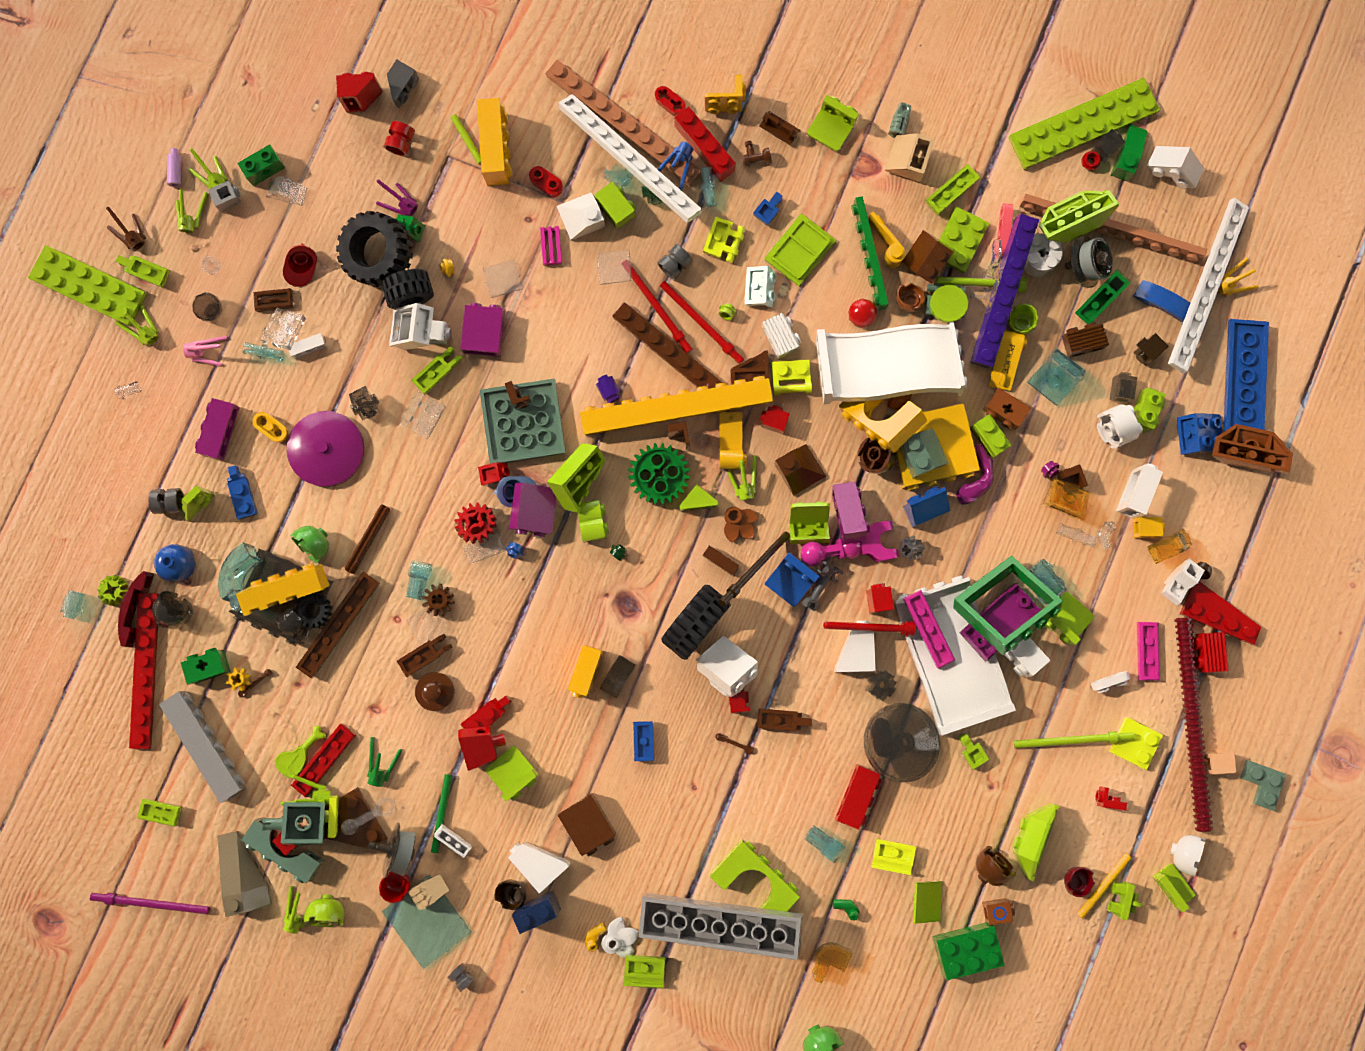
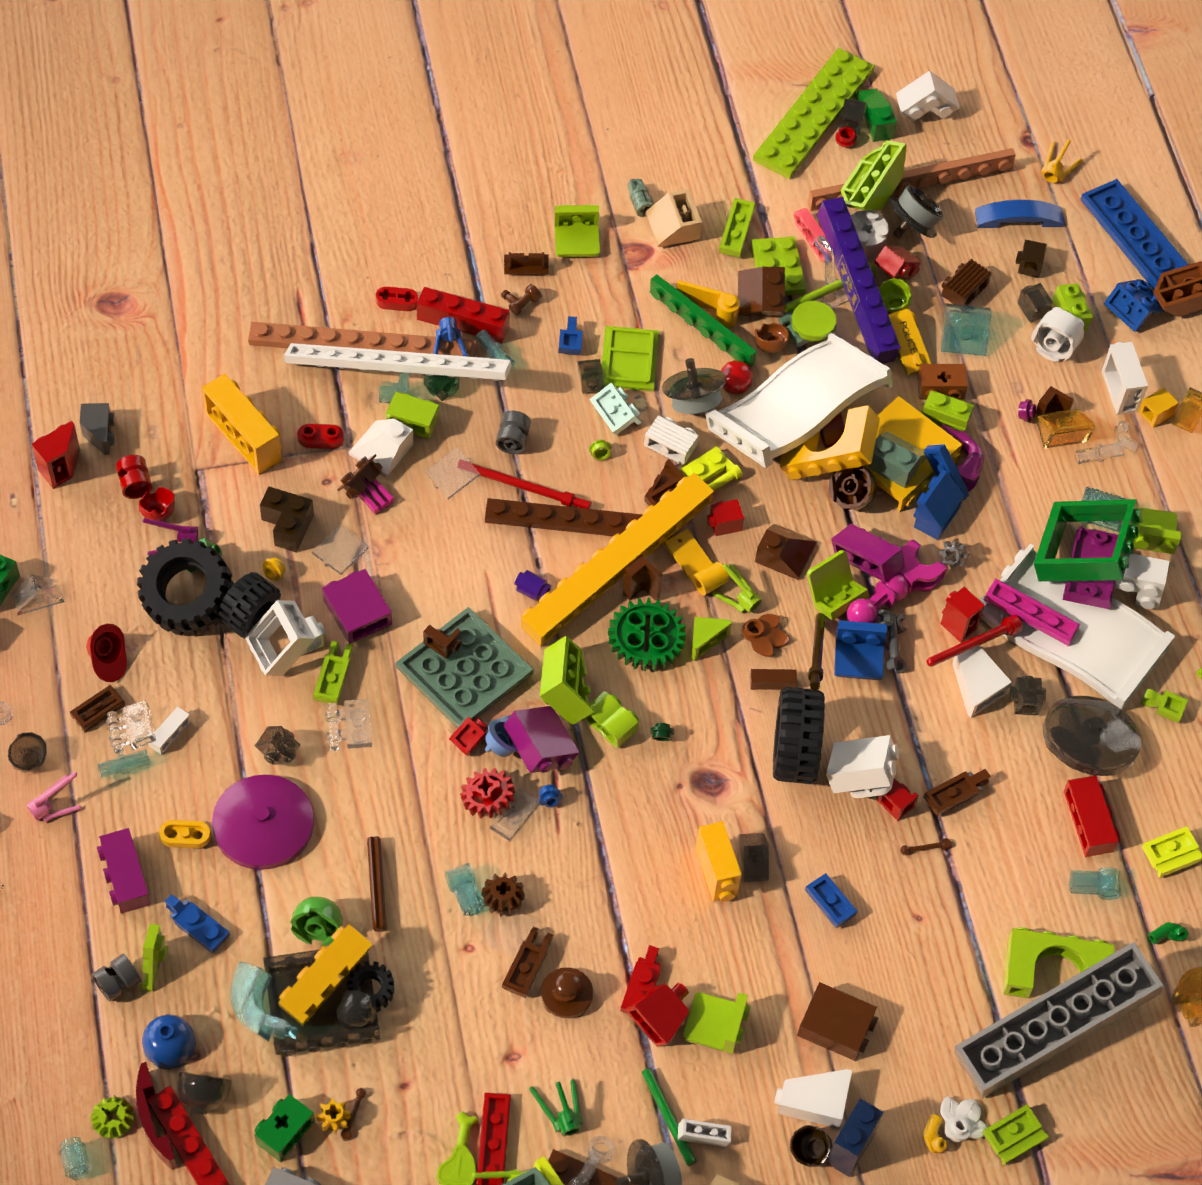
camera: 40 degrees left, 25 degrees down
(337, 625) = (407, 991): reddish brown plate -> none
(400, 170) = (157, 505): none -> red hair
(465, 136) = (206, 442): lime bar -> none
(484, 234) = (290, 514): none -> dark brown brick
(540, 233) = (353, 481): none -> reddish brown hinge
(718, 237) = (540, 390): neon yellow plate -> none
(726, 346) = (625, 482): red bar -> none
(727, 102) = (458, 264): yellow bracket -> none
(761, 248) = (591, 376): none -> clear smoke bracket
(821, 307) = (694, 389): none -> clear smoke piece
(950, 482) = (940, 459): none -> blue hinge
(1046, 294) = (898, 262): none -> red brick
(1103, 297) = (952, 238): green slope -> none
(1208, 285) = (1039, 178): white plate -> none

